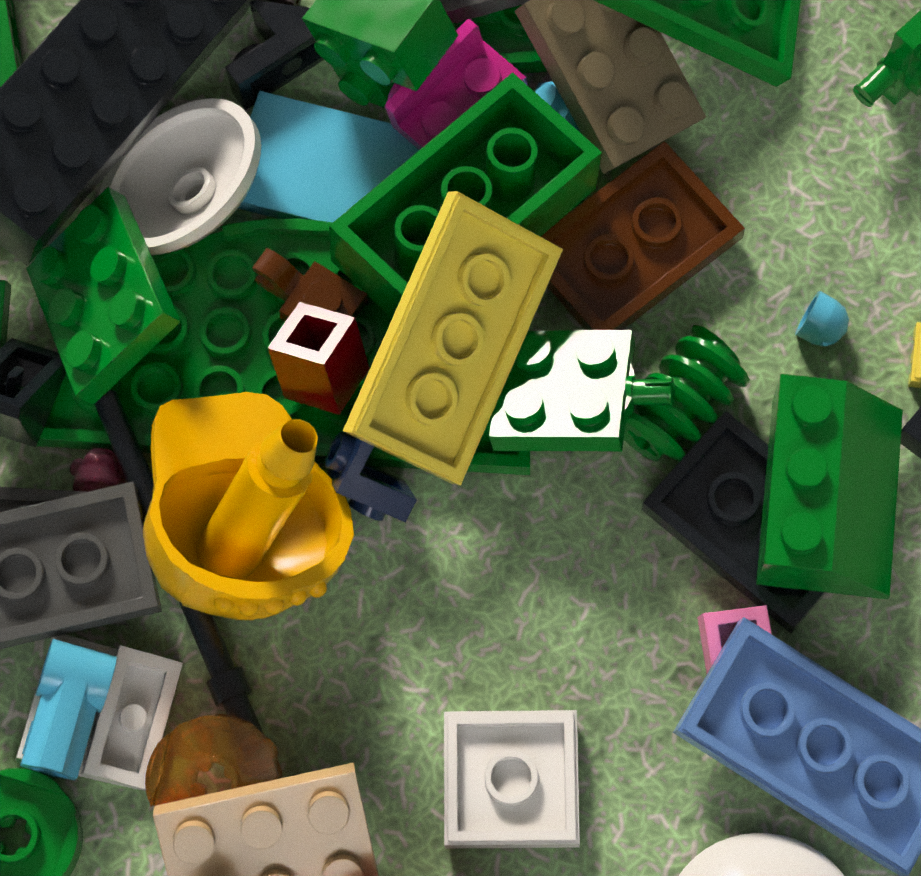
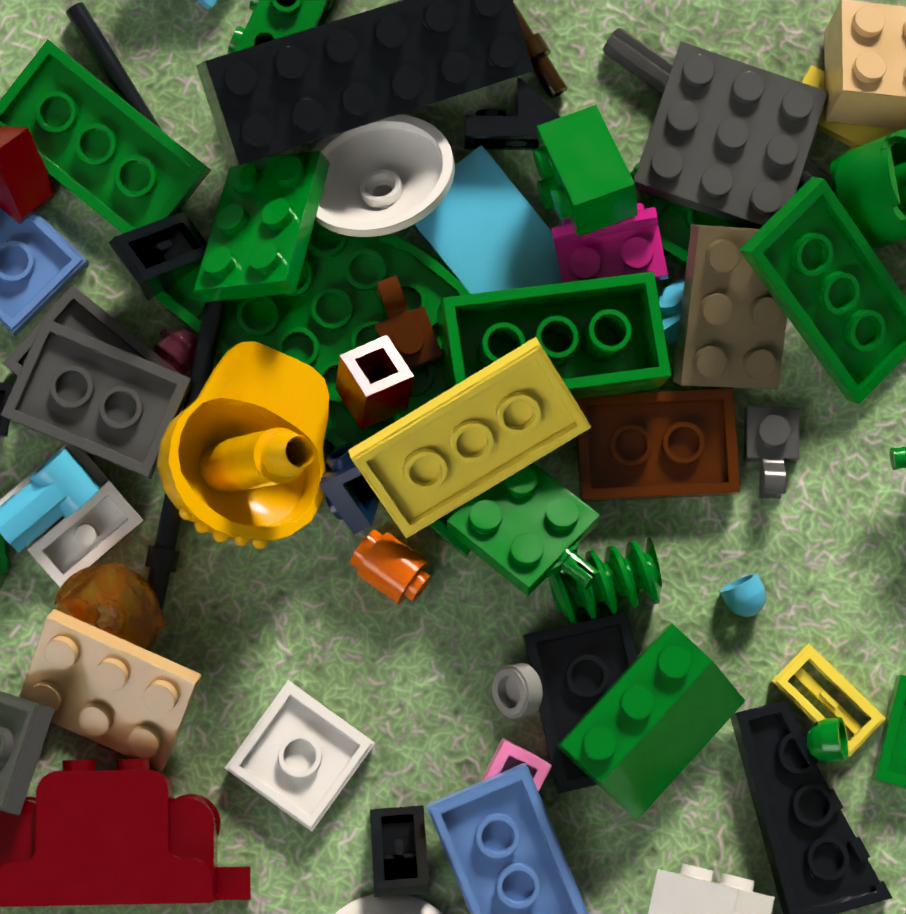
camera: 25 degrees right, 10 degrees up
(464, 531) = (391, 567): none -> orange brick
(677, 560) = (517, 690): none -> light grey tile
(683, 801) = (399, 851): none -> black slope
(739, 166) = (772, 440): none -> dark grey plate

